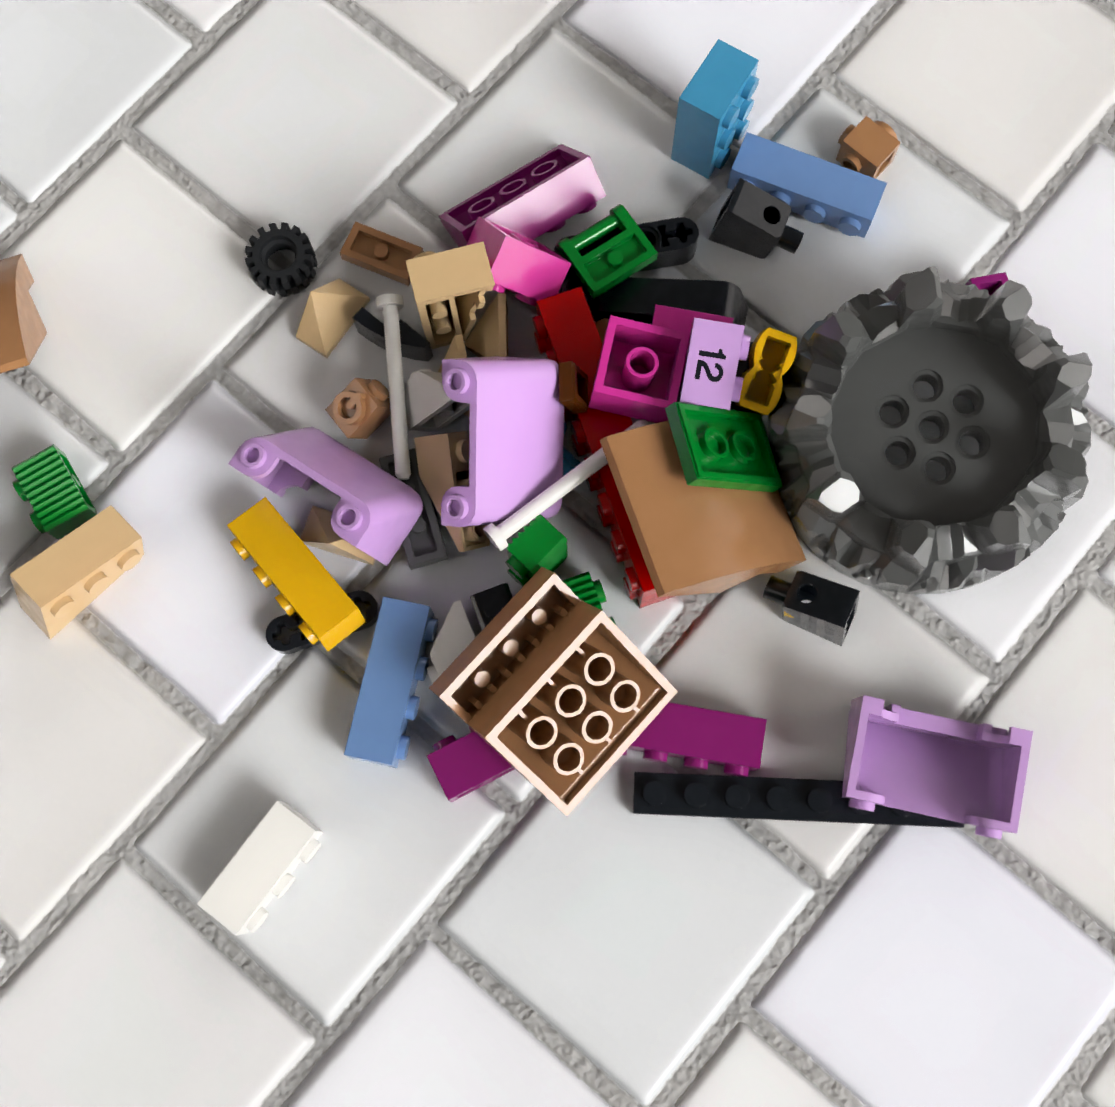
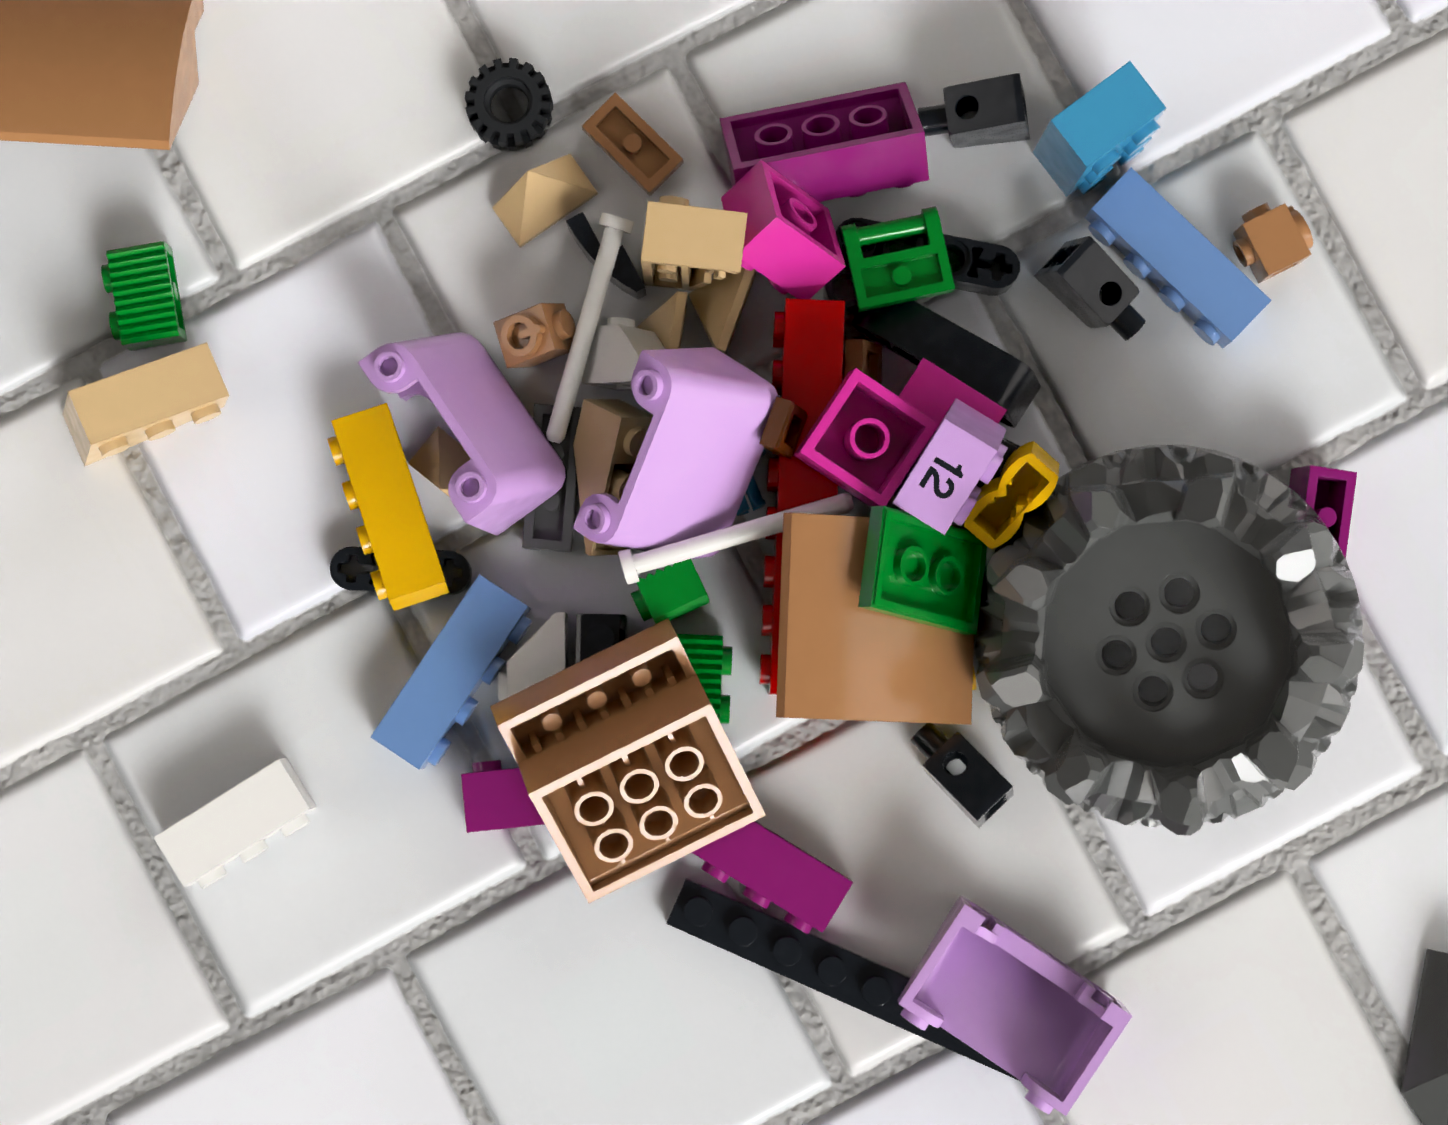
camera: 15 degrees right, 10 degrees up
(626, 135) = (999, 110): none -> black torso

